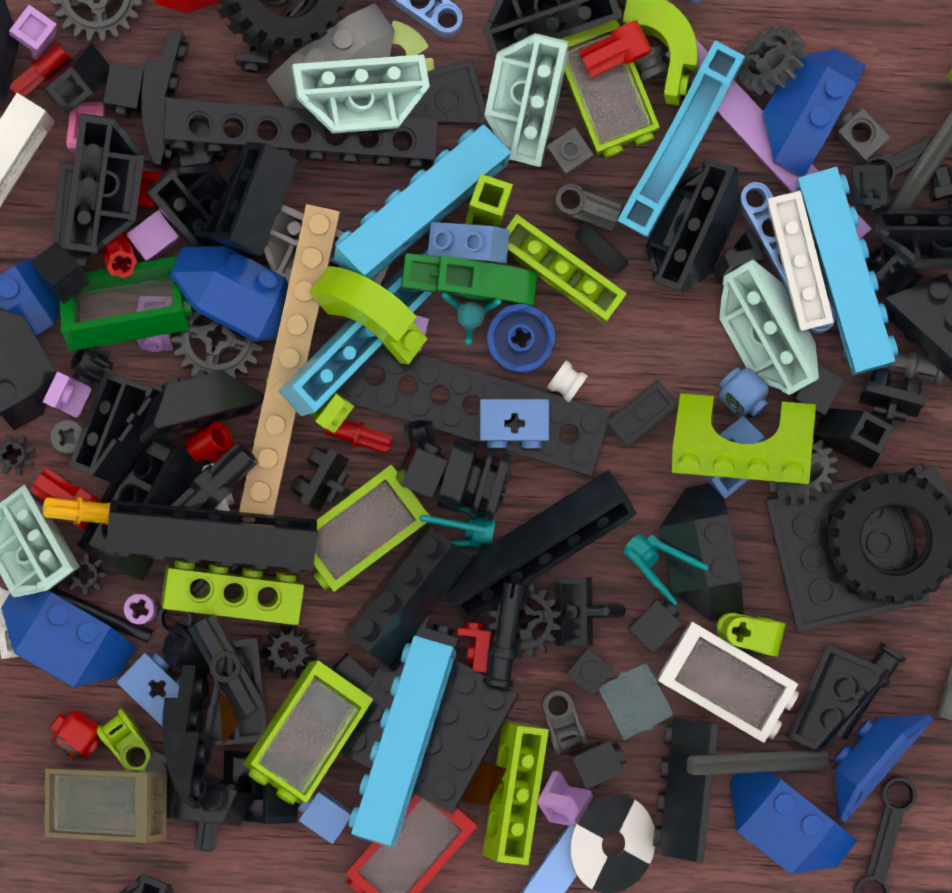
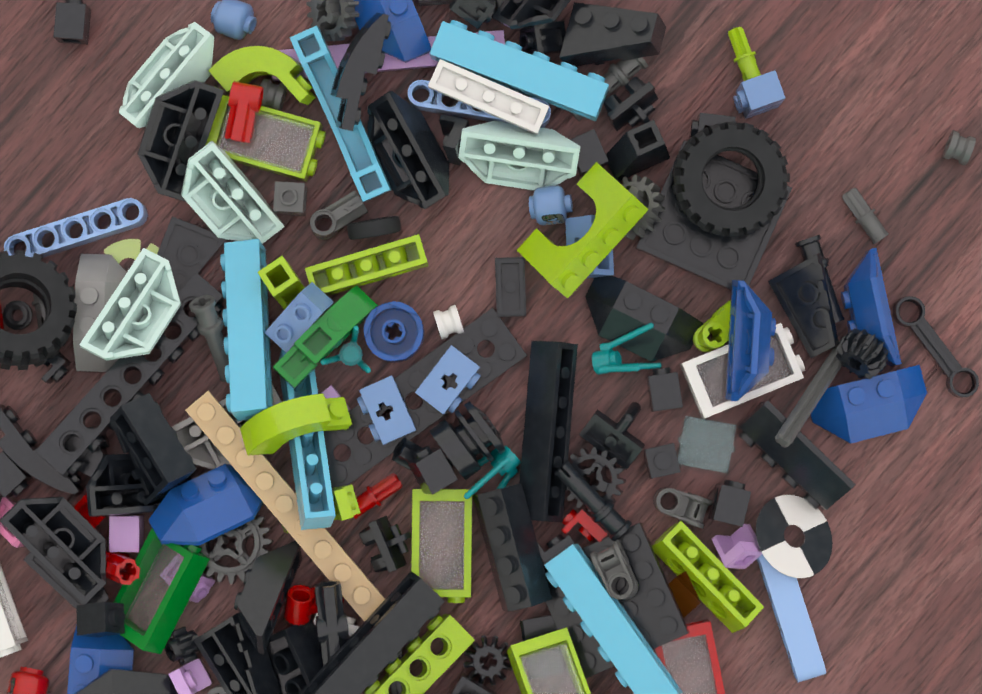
camera: 40 degrees left, 0 degrees up
(398, 170) = (211, 327): none -> dark grey pin
(444, 406) = (386, 392): none -> medium blue brick
(459, 698) = (614, 569): none -> dark grey piece
(747, 117) = (361, 56): none -> black slope
(759, 666) = (748, 341): none -> blue wedge
(827, 779) = (862, 353): none -> black gear

